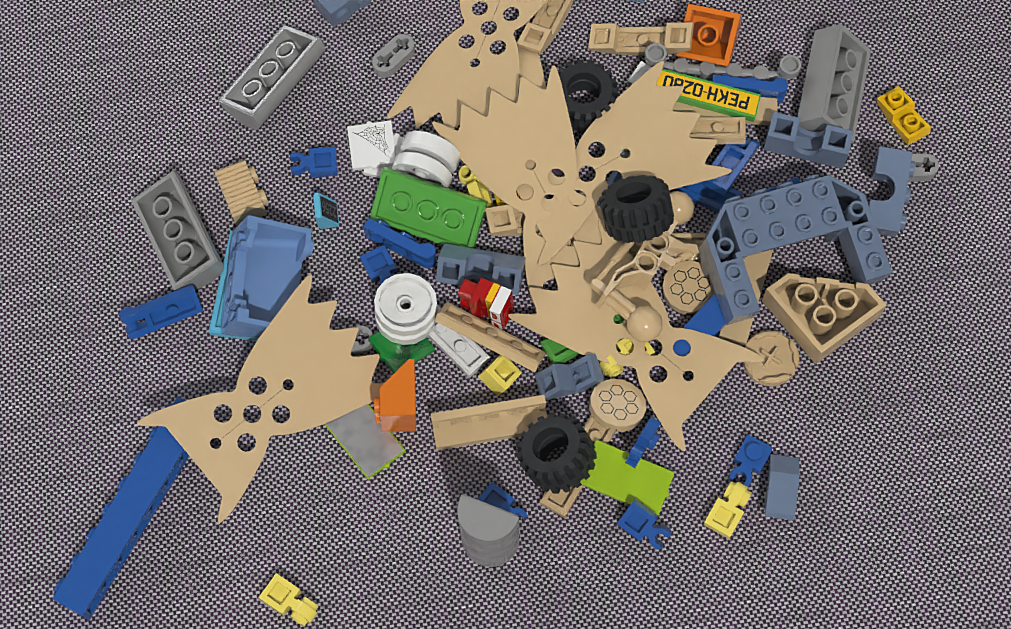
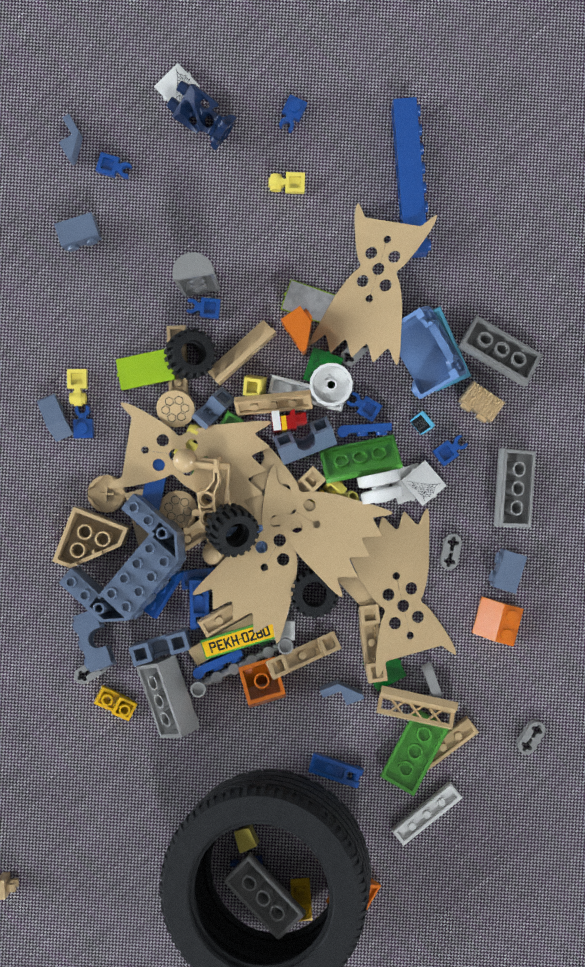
camera: 145 degrees right, 20 degrees up
(160, 312) = (475, 298): blue plate -> none
(640, 521) = (120, 348): blue plate -> none
(647, 439) = (146, 396): blue plate -> none

